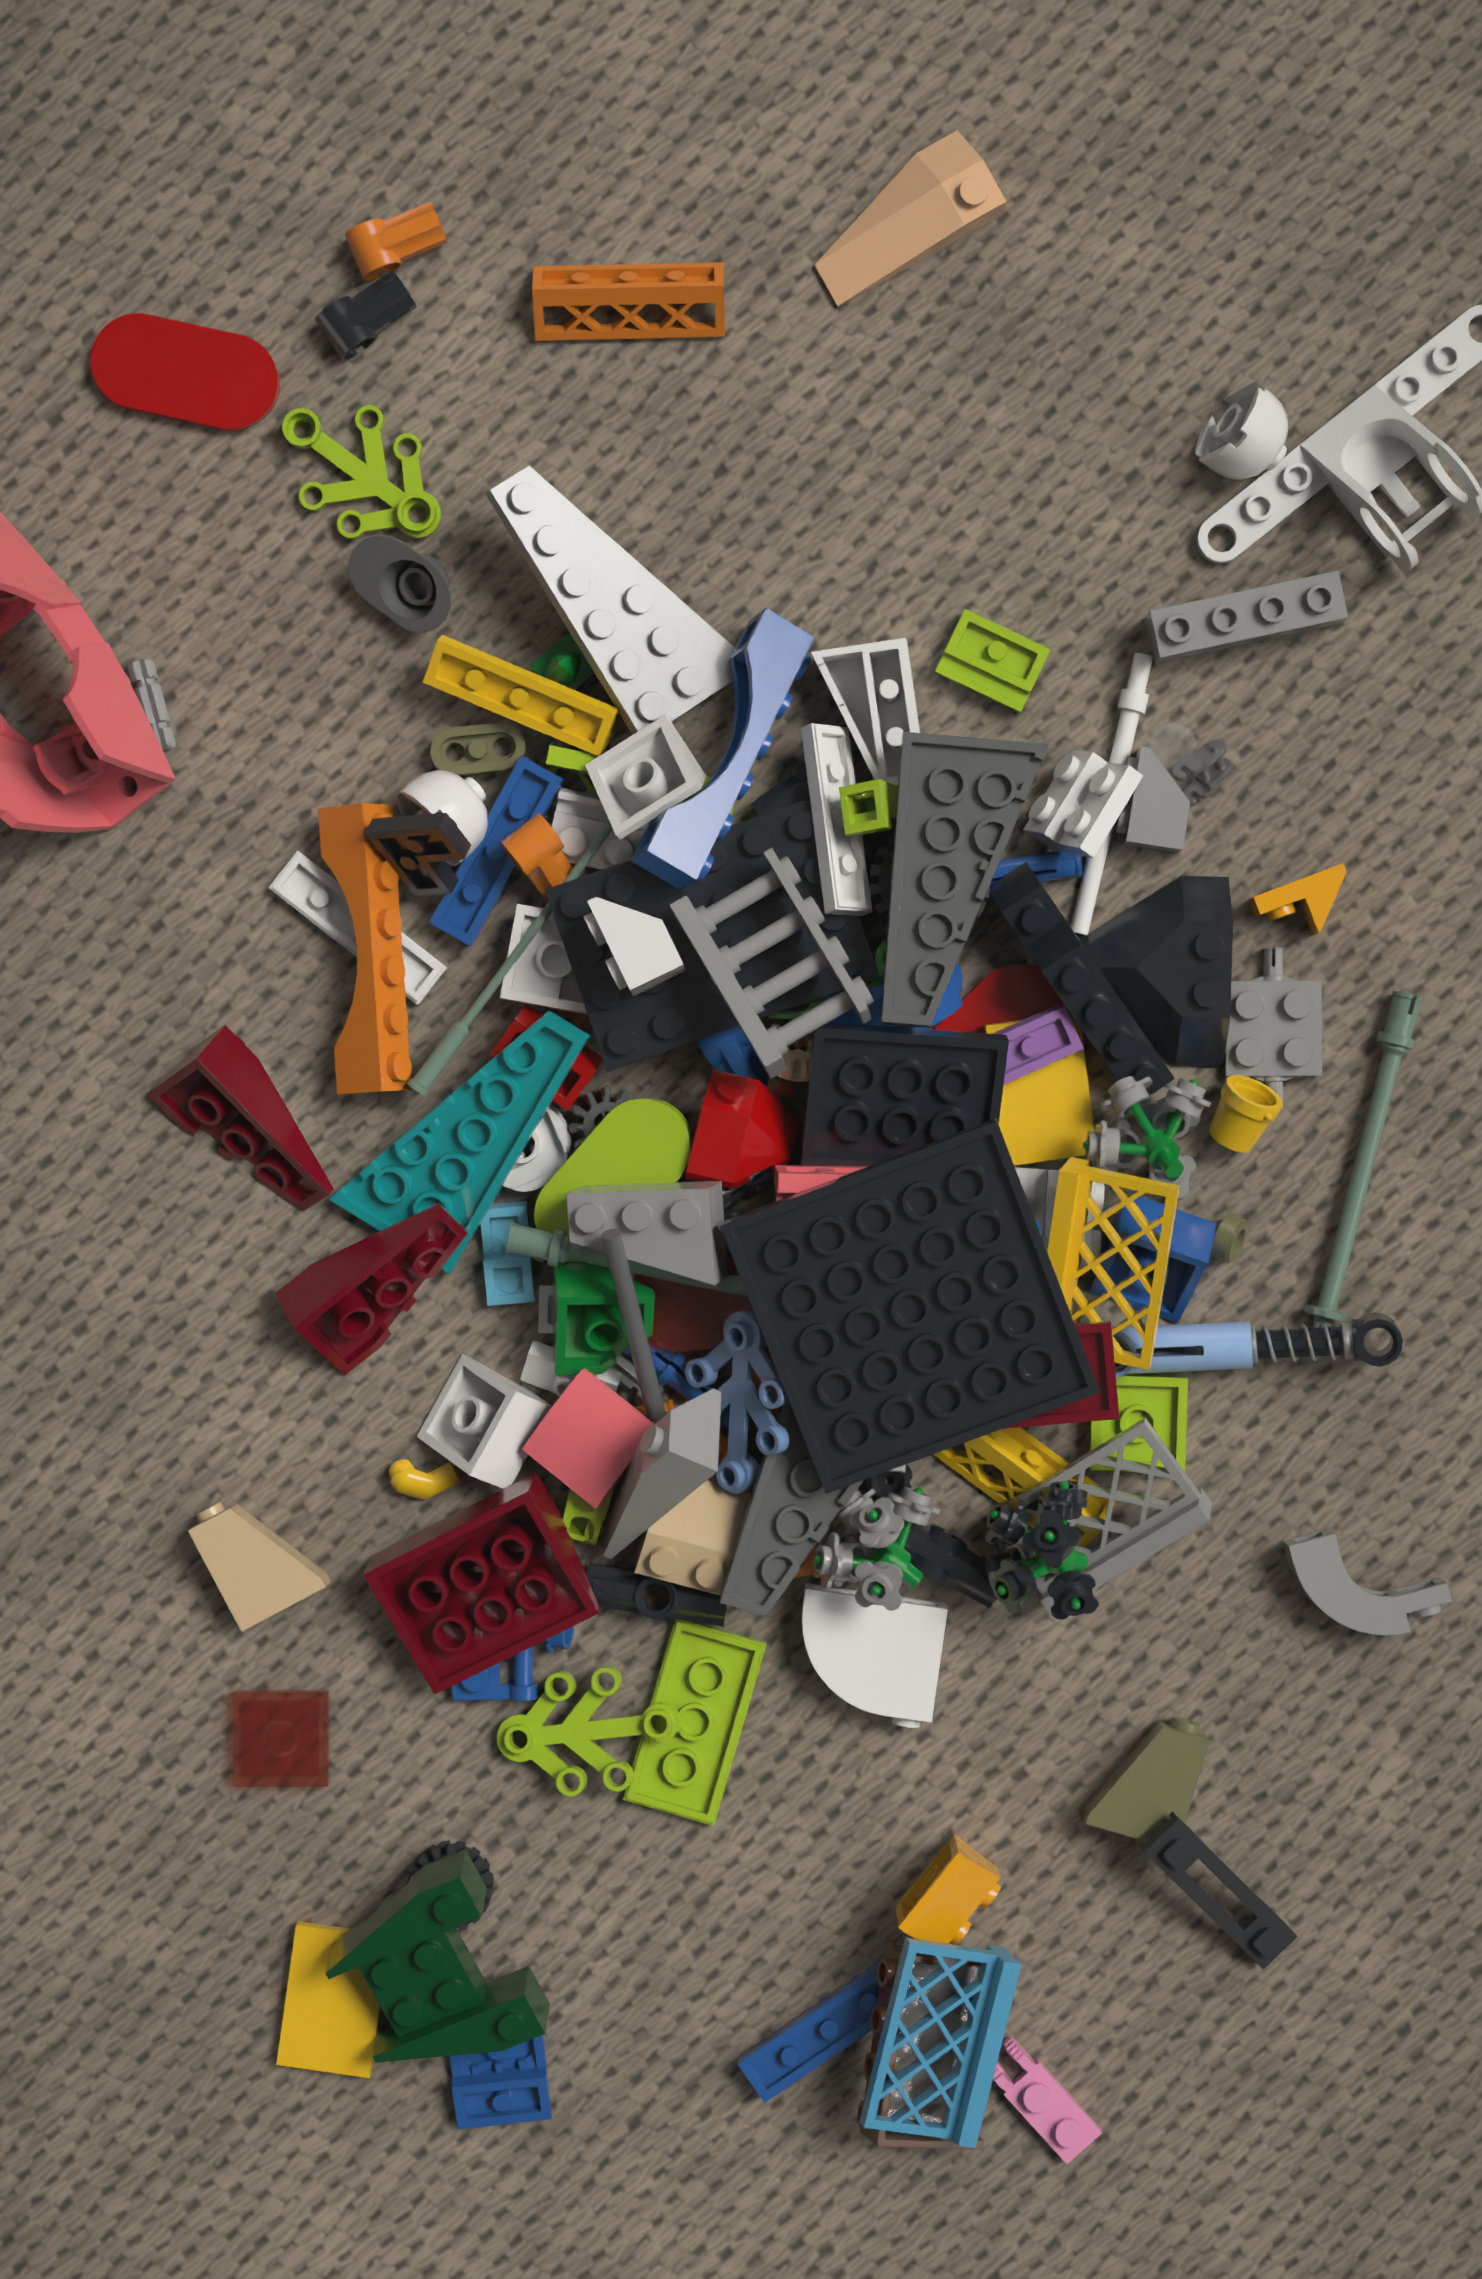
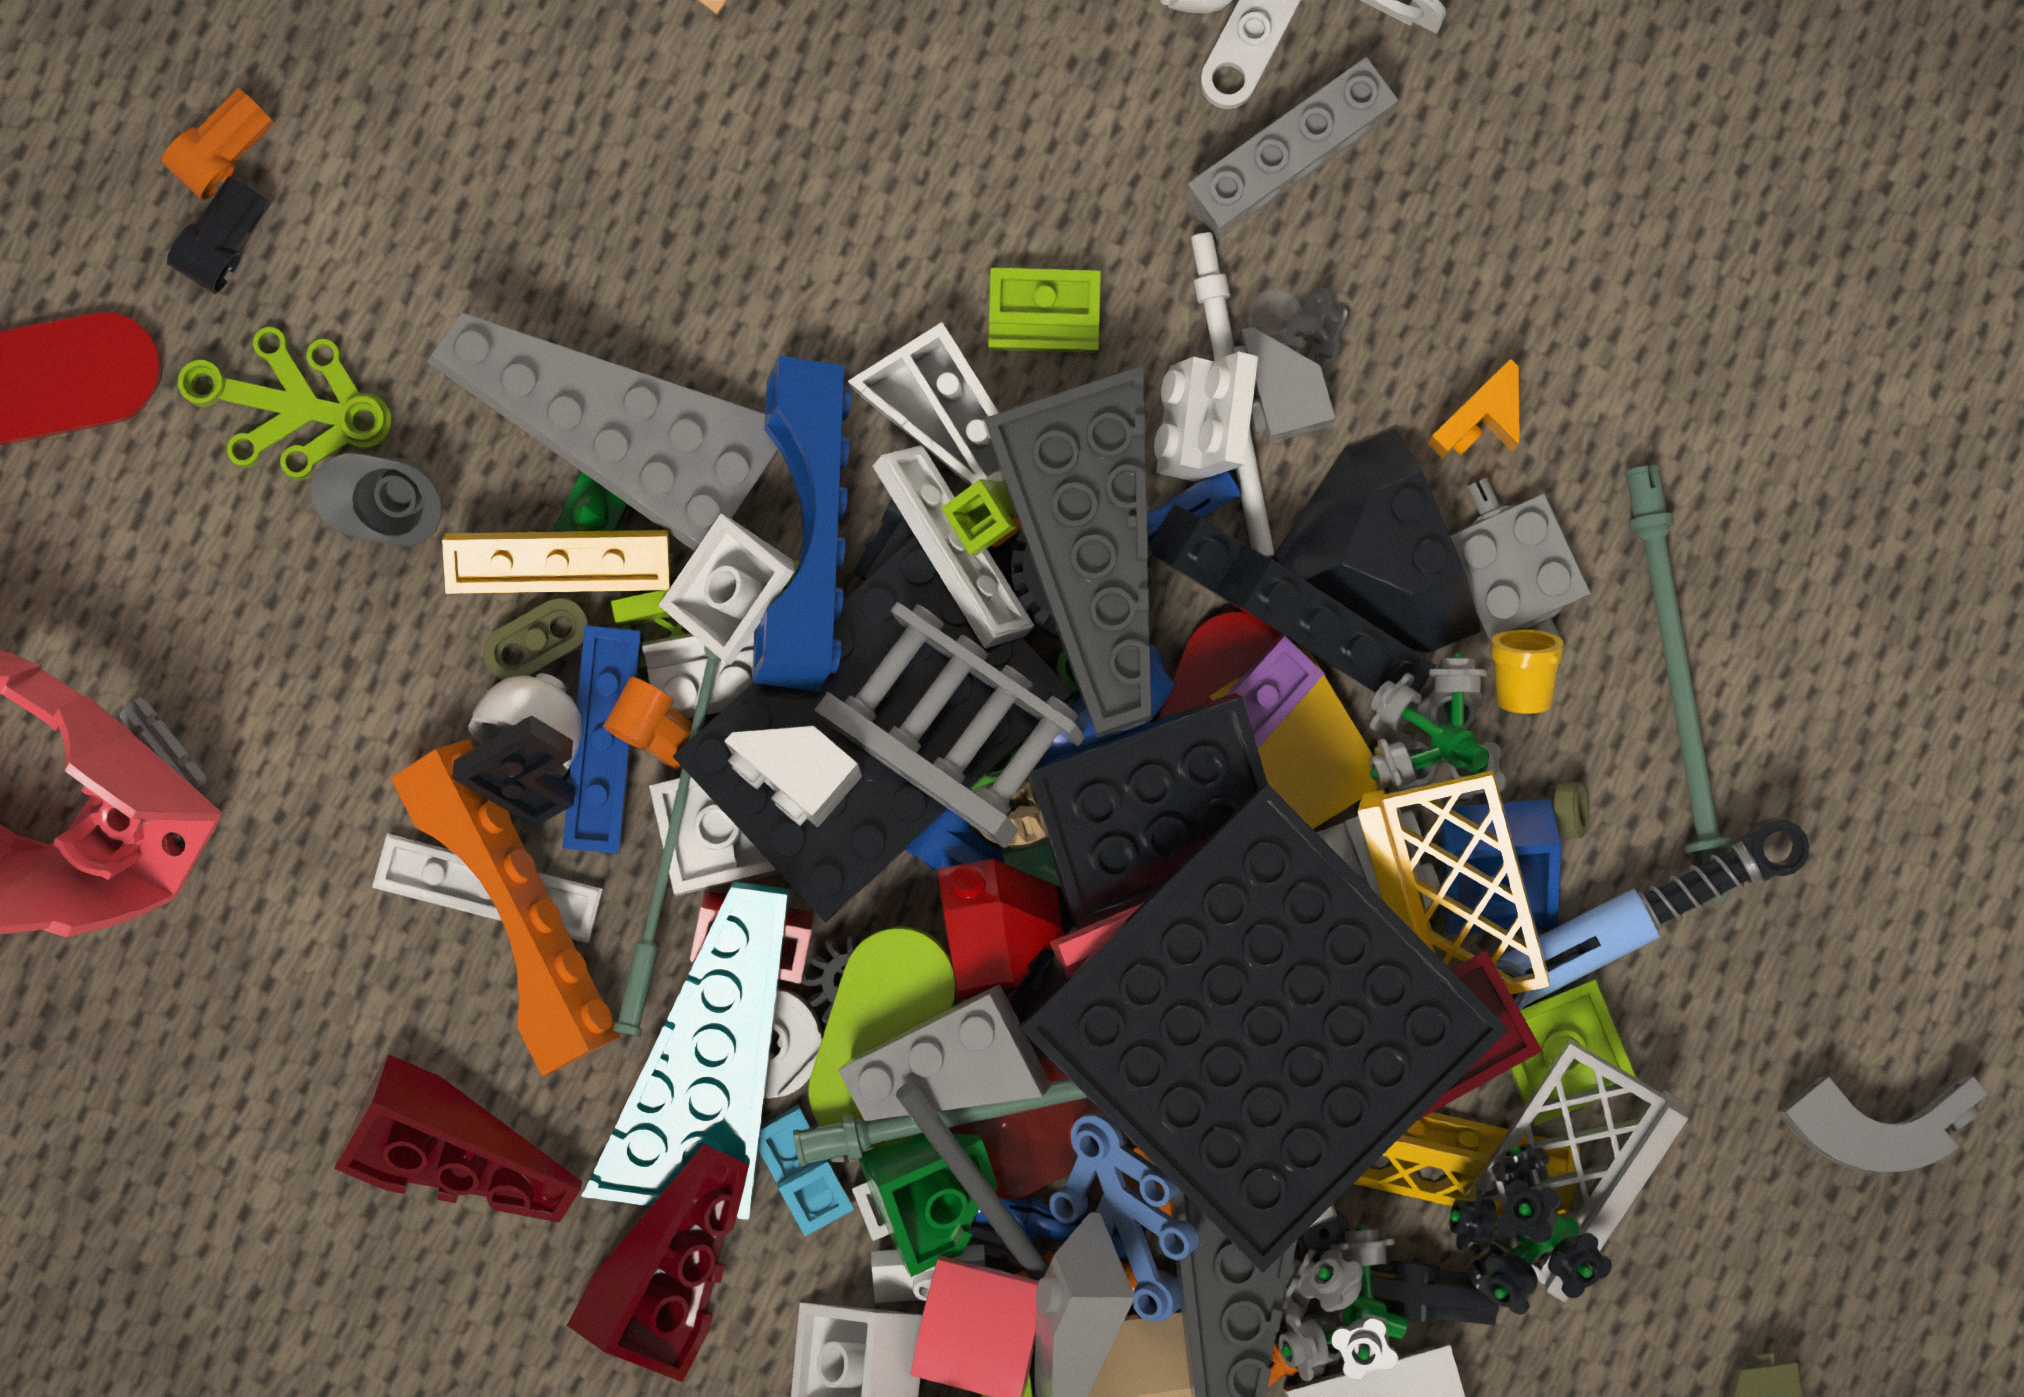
camera: 25 degrees left, 5 degrees down
(623, 286) = (482, 87): orange fence -> none

